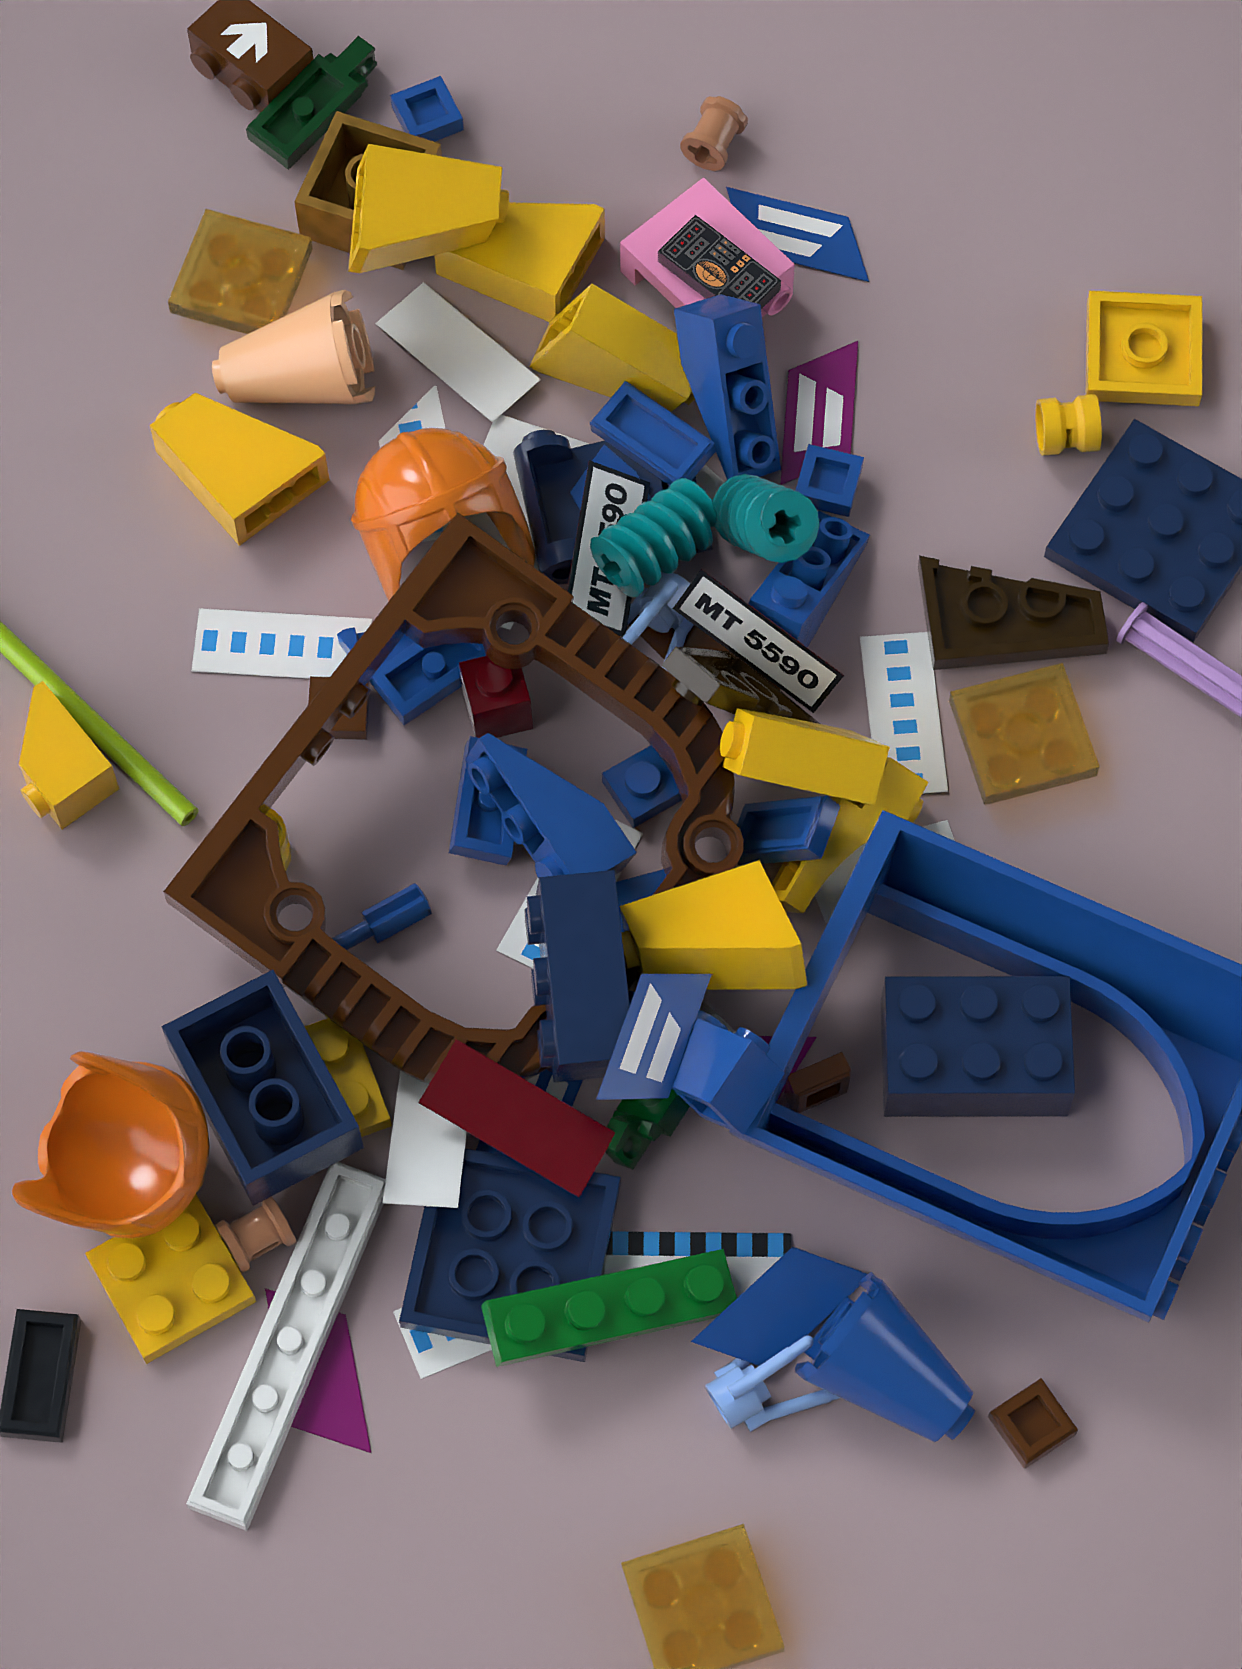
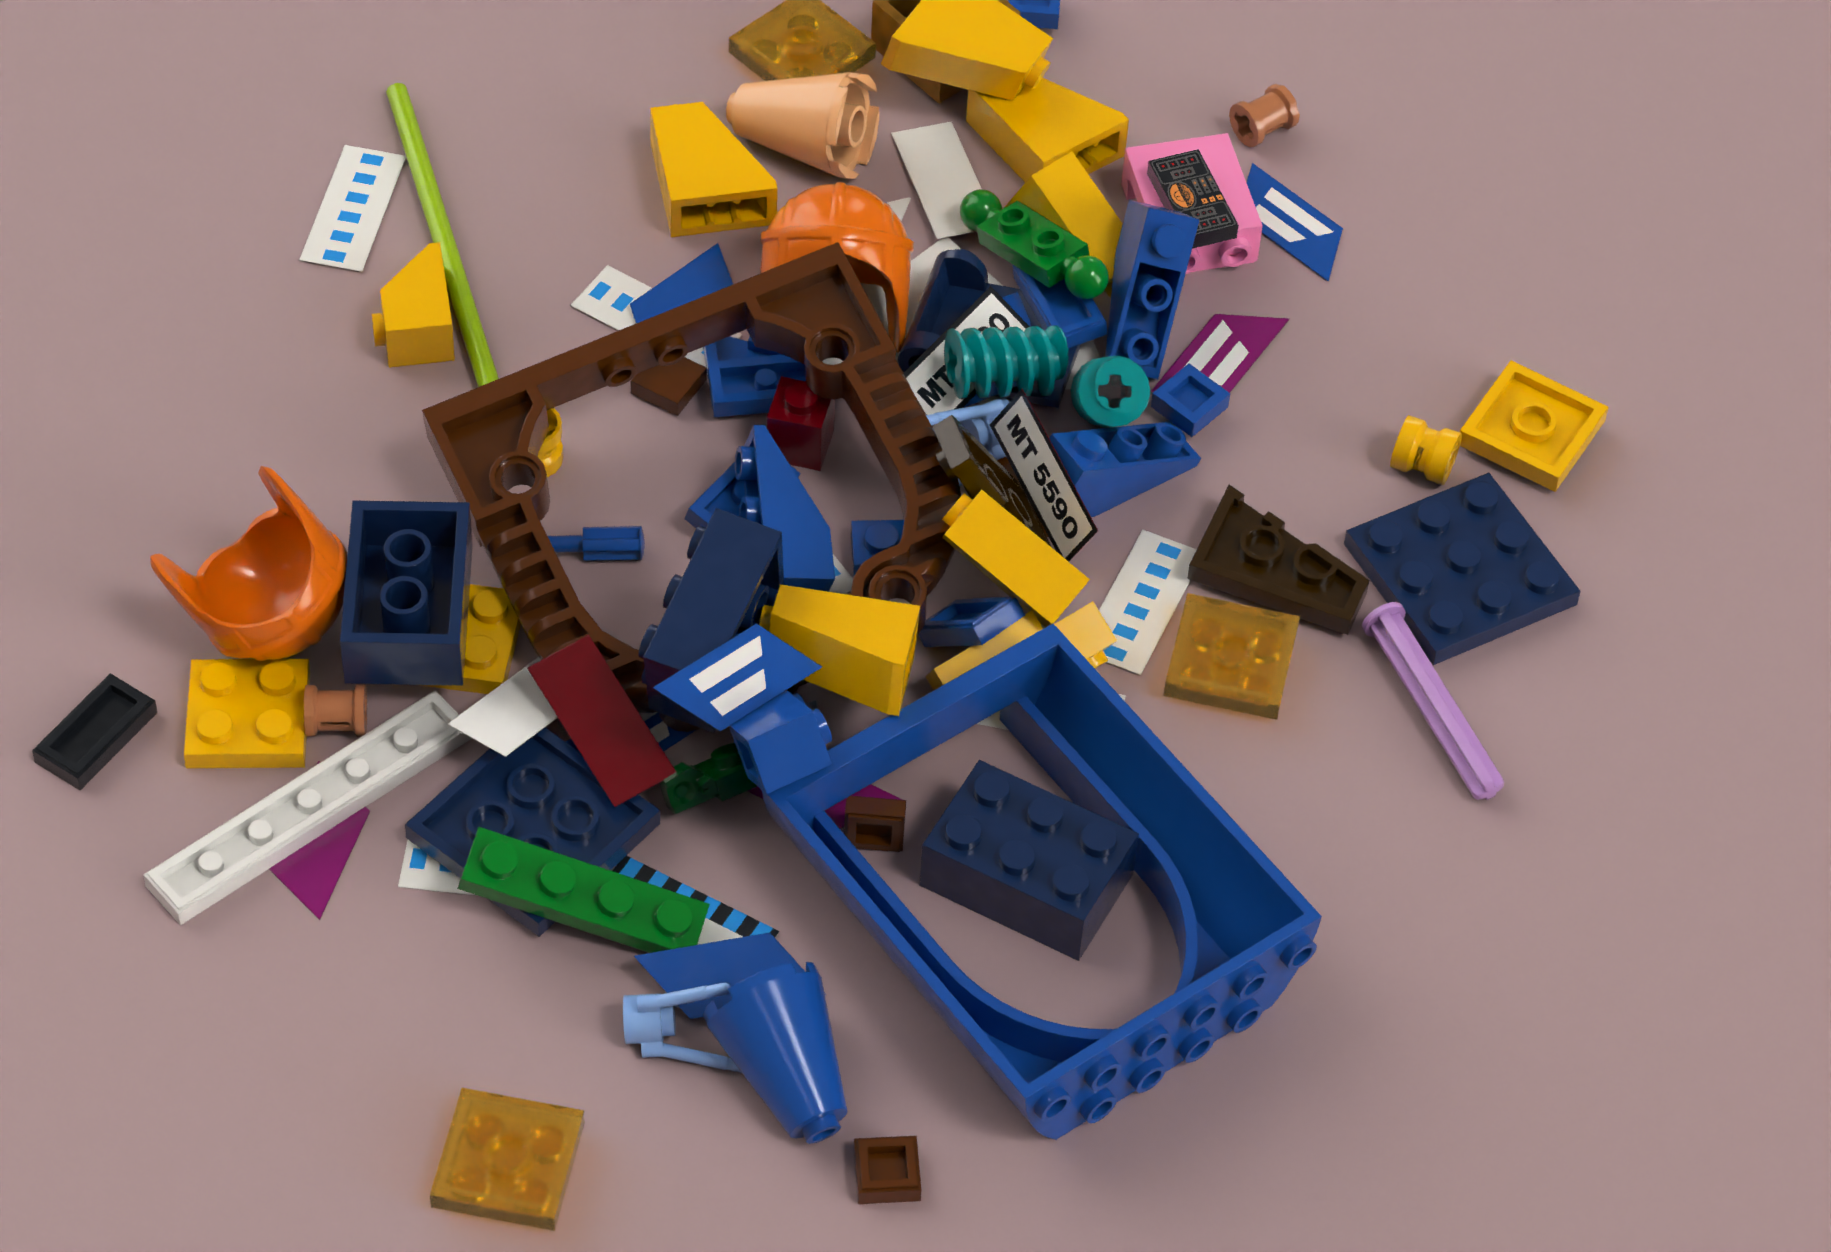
camera: 25 degrees right, 15 degrees down
(295, 611) = (696, 279): none -> blue sticker
(600, 393) = (1034, 244): none -> green plate

